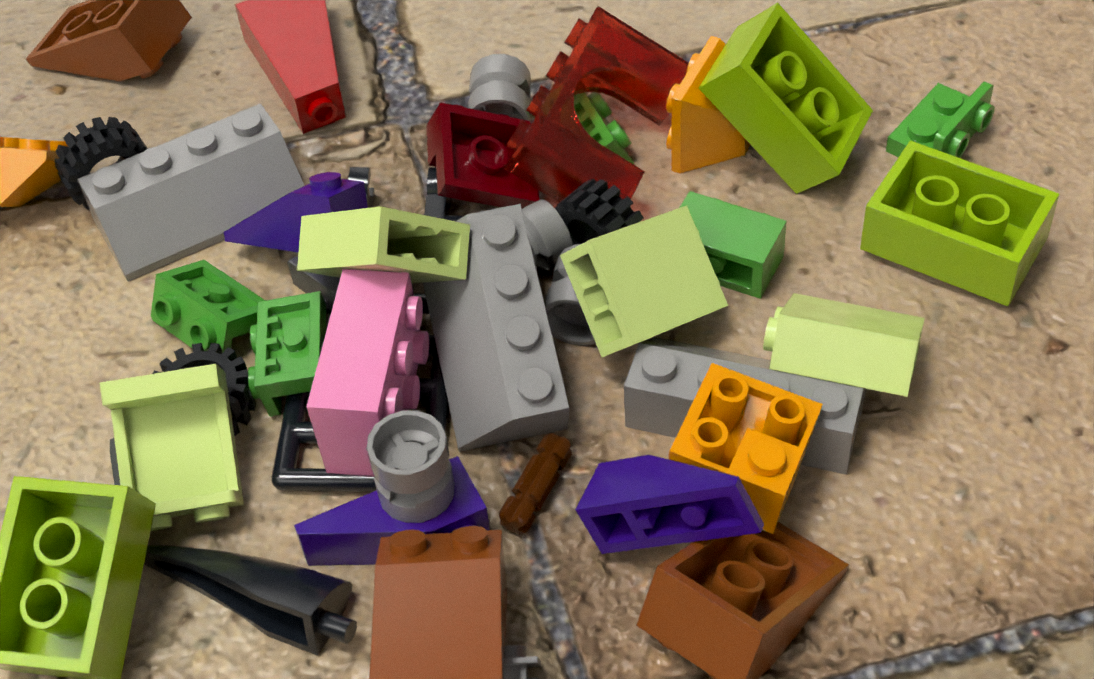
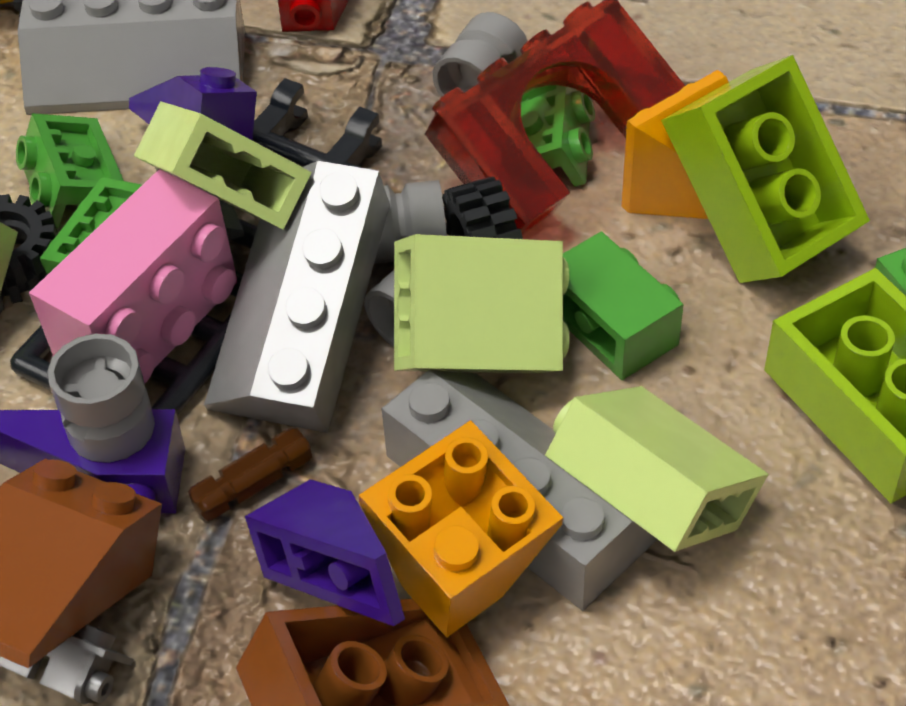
camera: 25 degrees right, 0 degrees up
(471, 157) = (399, 110): dark red plate -> none

